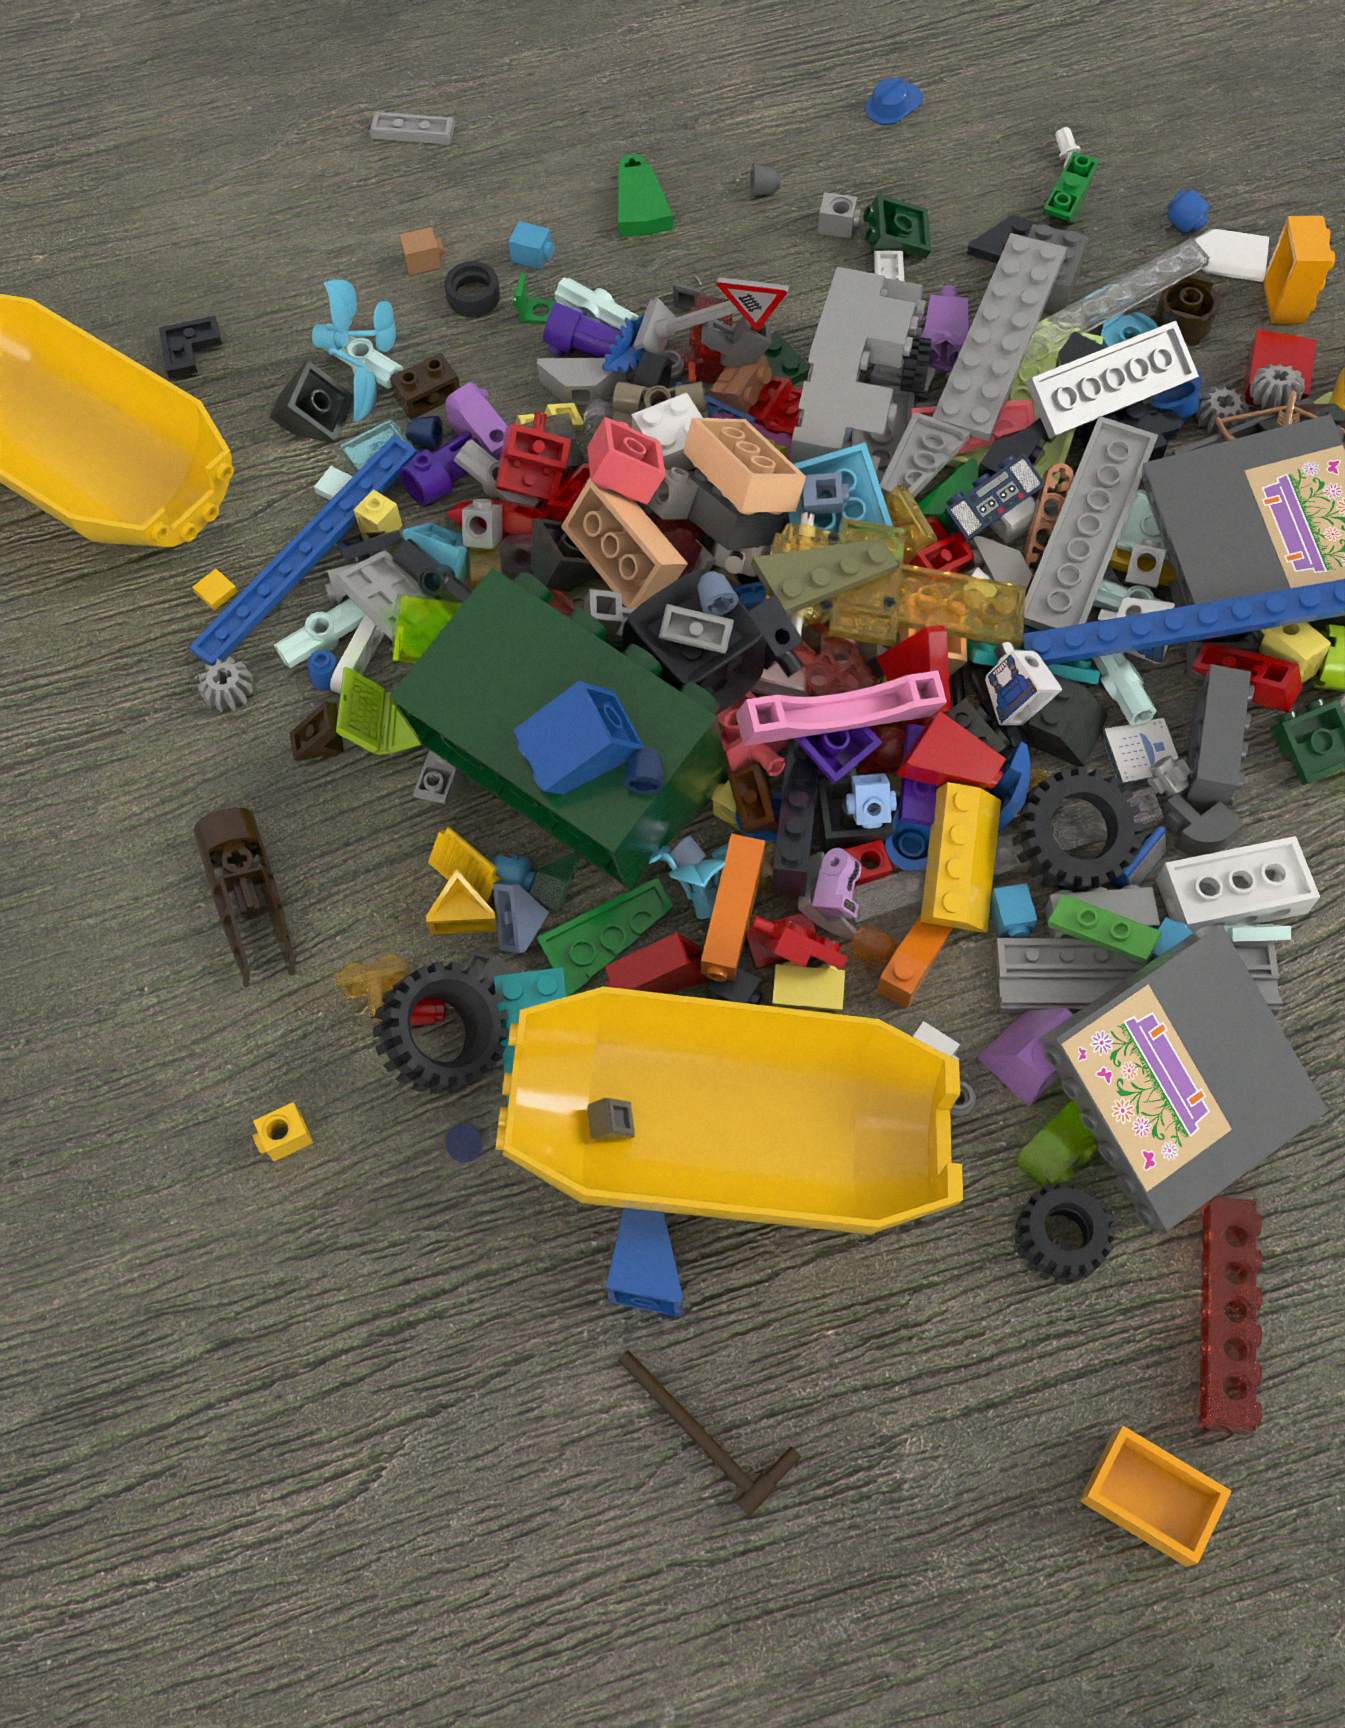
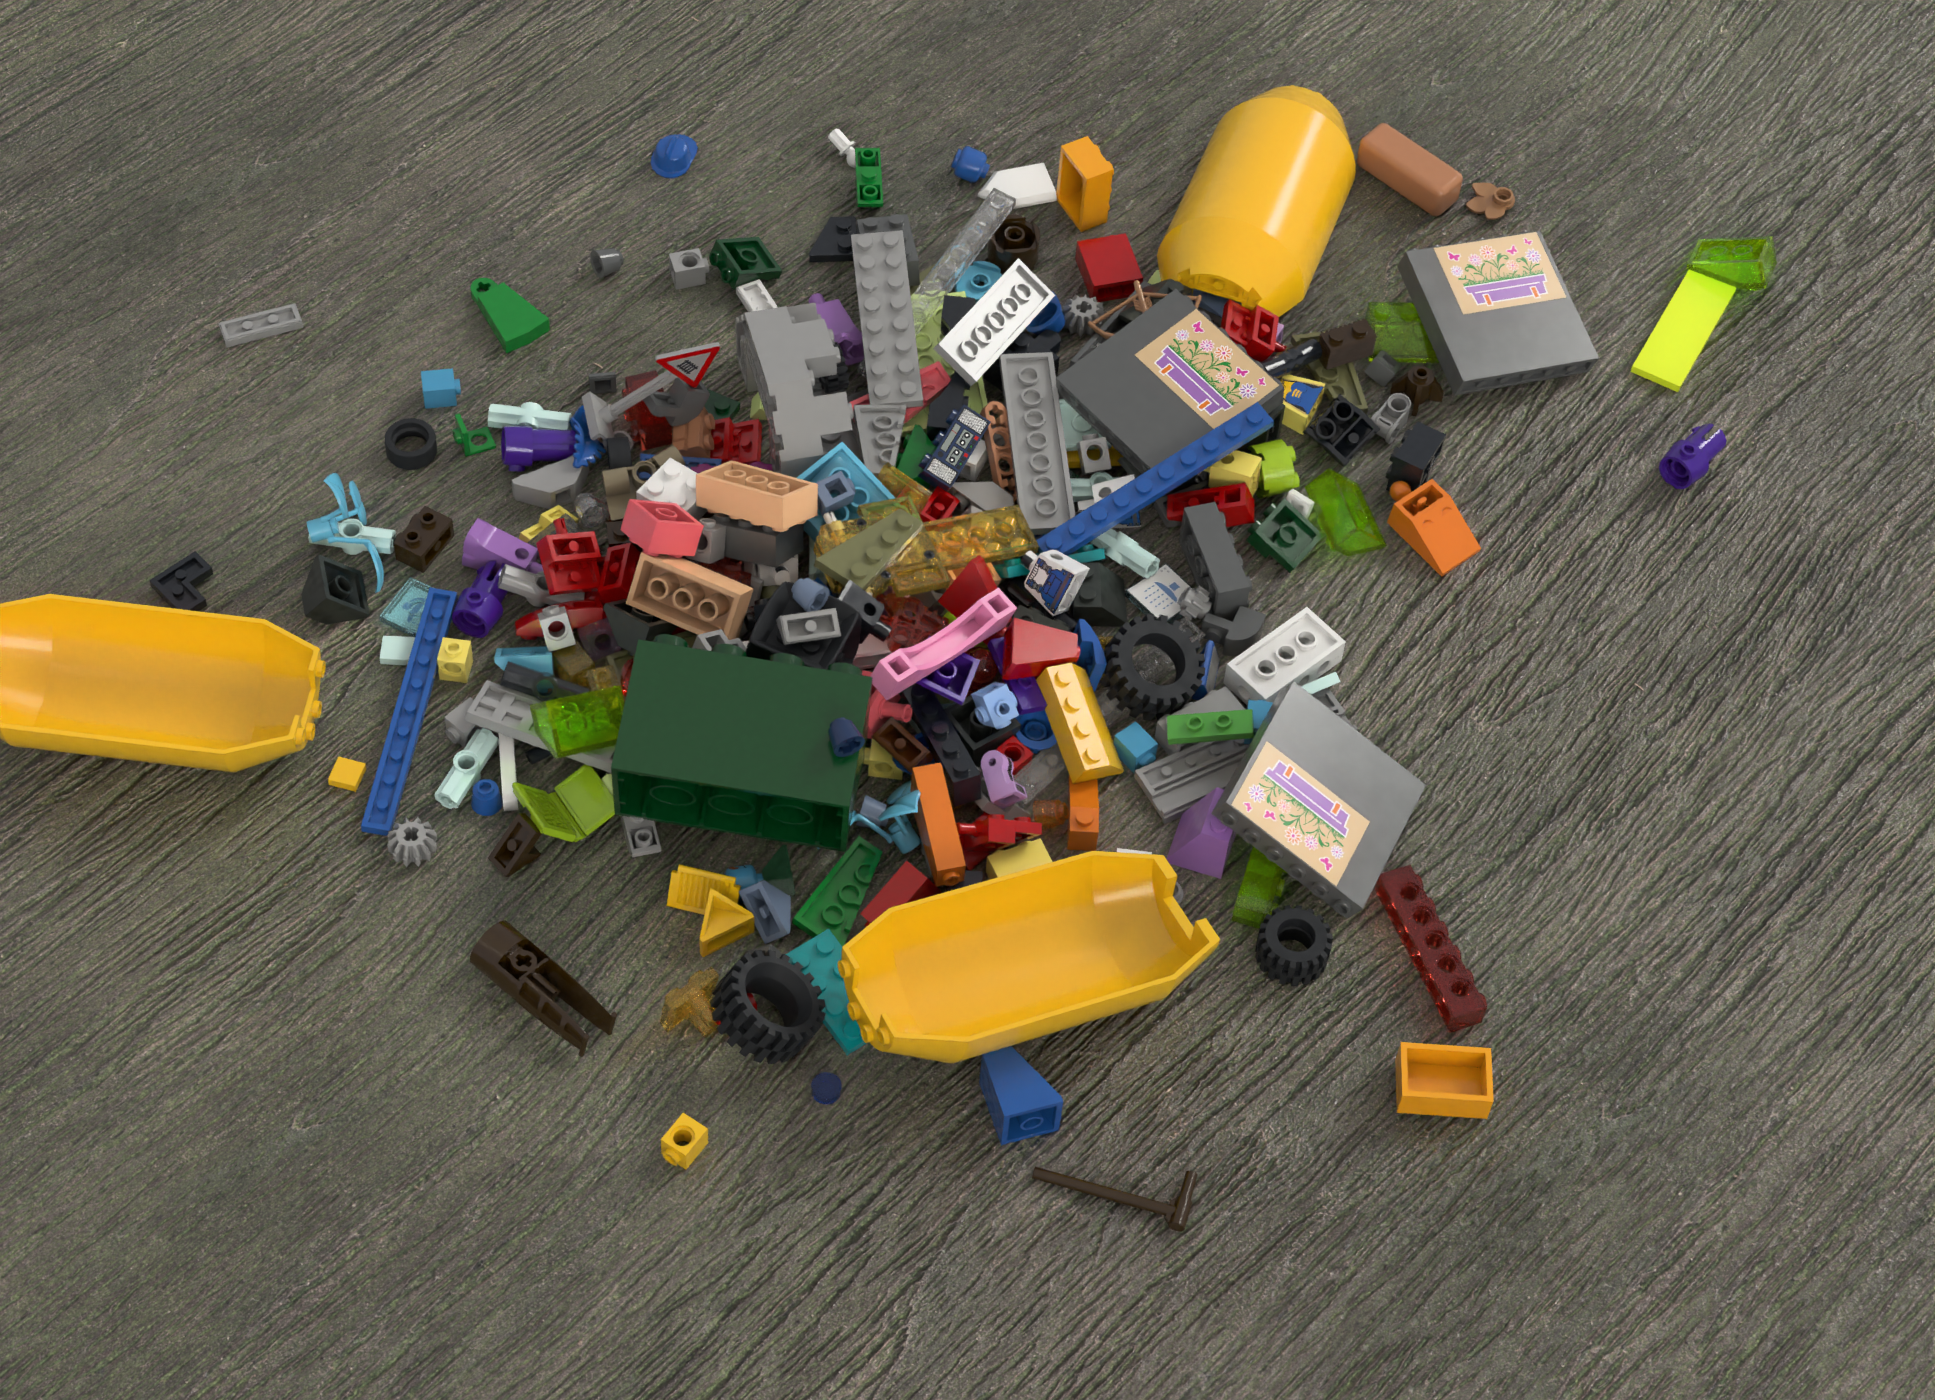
camera: 35 degrees left, 10 degrees down
(358, 546) = (461, 685): black wing -> none
(421, 250) = (344, 428): medium nougat brick -> none
(425, 432) = (447, 576): dark blue hat -> none
(577, 738) = (781, 735): blue slope -> none
(610, 1119) = (935, 1010): dark grey slope -> none
(1273, 384) = (1117, 281): light grey gear -> none

